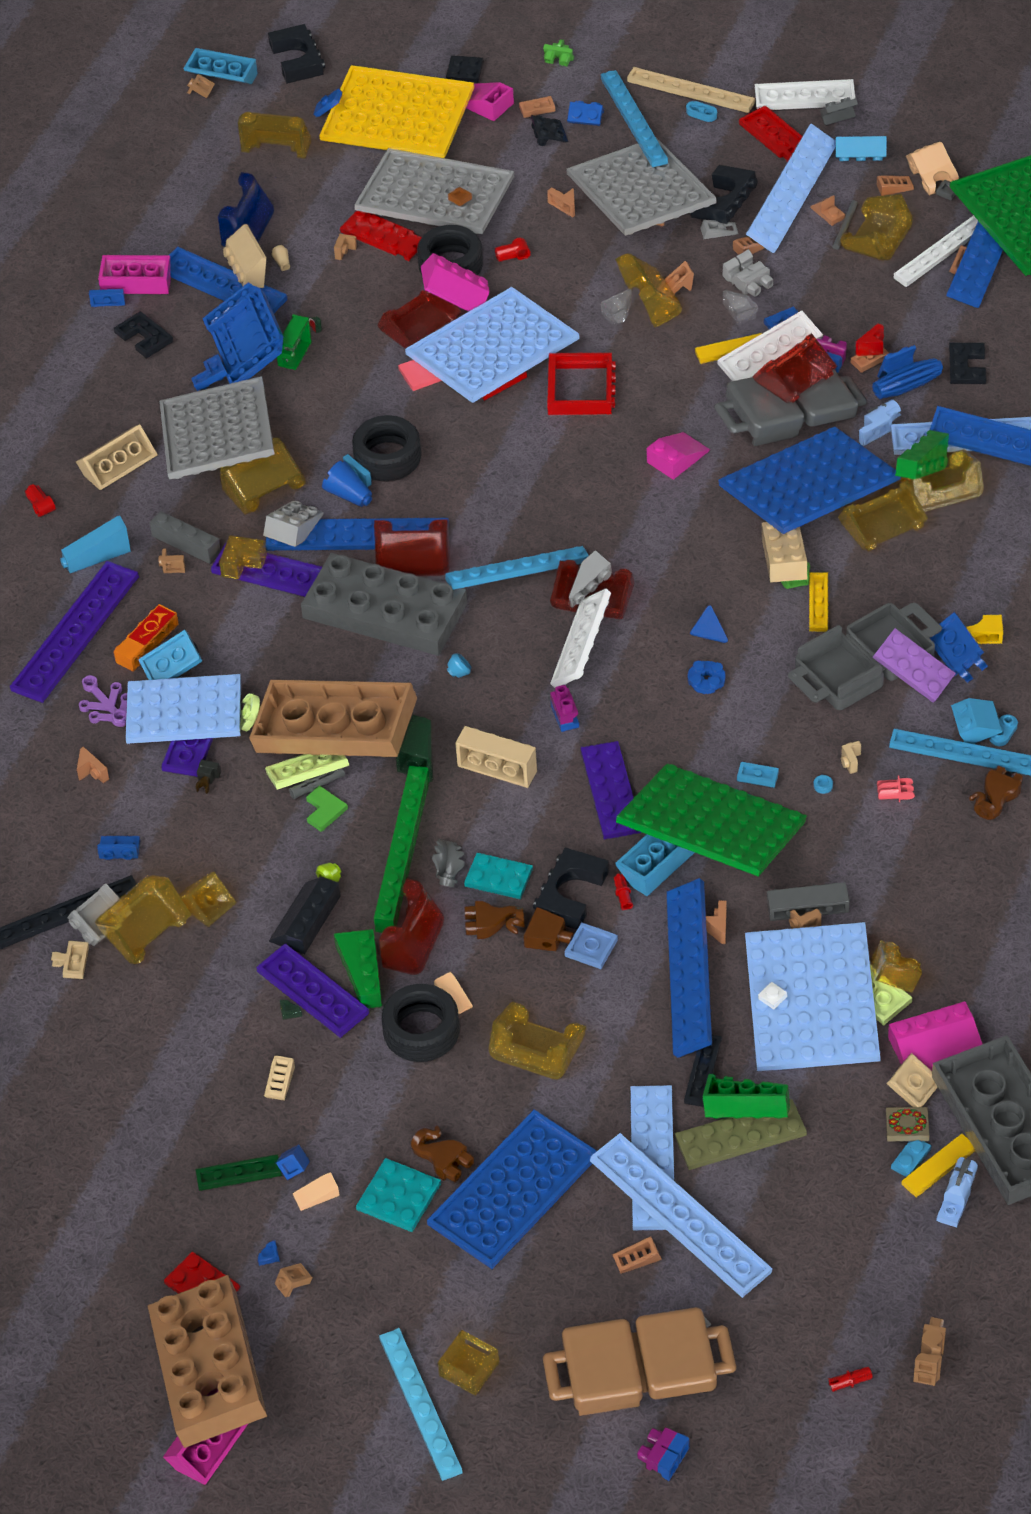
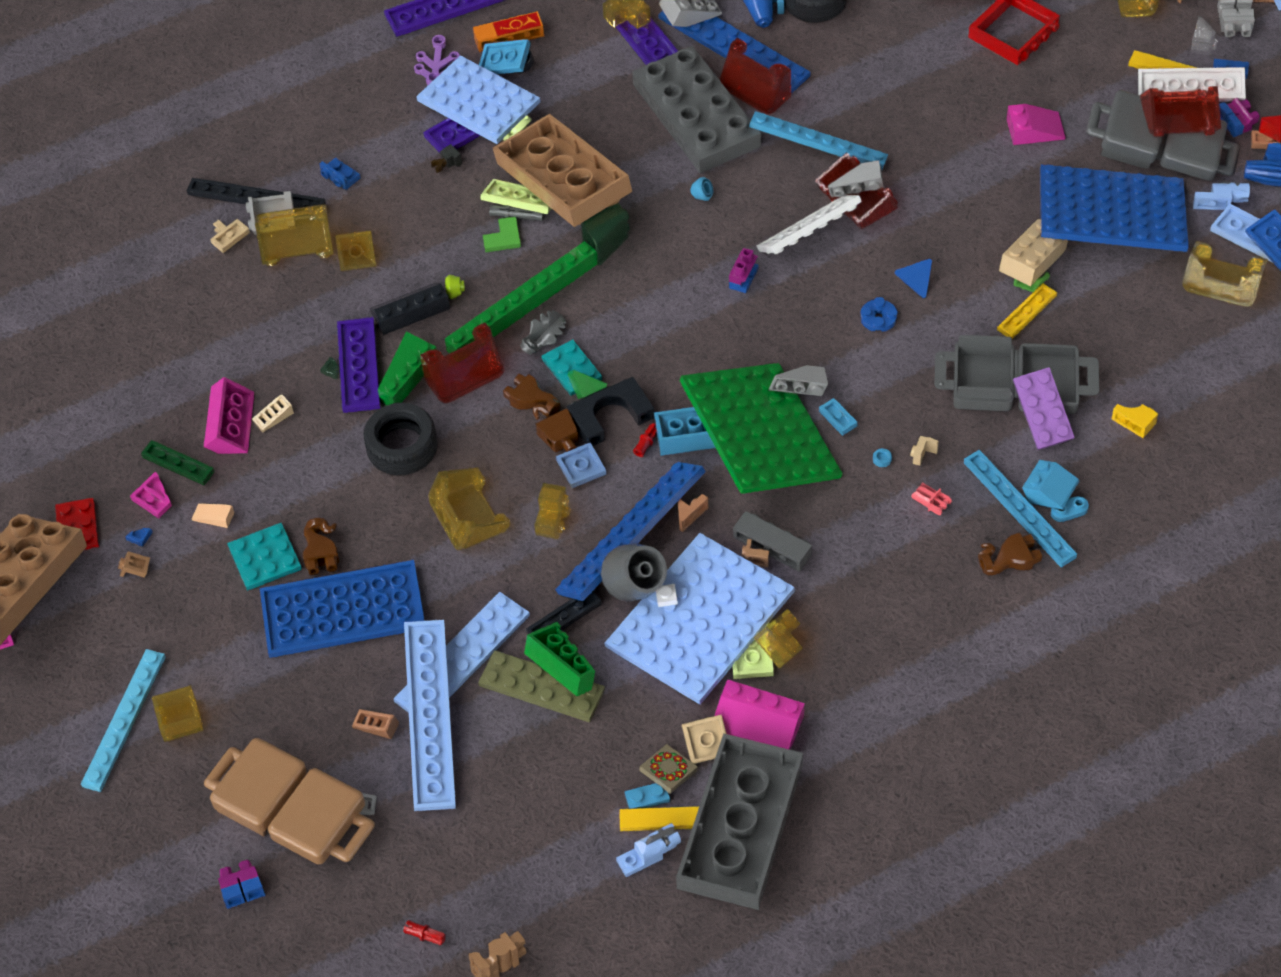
camera: 40 degrees right, 5 degrees up
(90, 765) = (376, 101): nougat slope -> none
(244, 1106) = (229, 418): none -> dark pink slope
(247, 1214) = (152, 496): none -> dark pink wing
(292, 1162) = (218, 480): blue panel -> none
(450, 985) = (449, 433): light nougat slope -> none
(496, 756) = (654, 274): tan brick -> none
(530, 880) = (584, 384): none -> green slope
(608, 786) = (724, 345): dark purple plate -> none
(609, 994) = (552, 512): none -> clear yellow brick
(708, 761) = (803, 380): none -> light grey slope
(734, 992) = (633, 571): none -> dark grey piece
(884, 517) = (1144, 275): clear yellow windscreen -> none
(924, 457) = (1219, 245): green wedge -> none
(958, 647) = (1096, 418): blue tile -> none

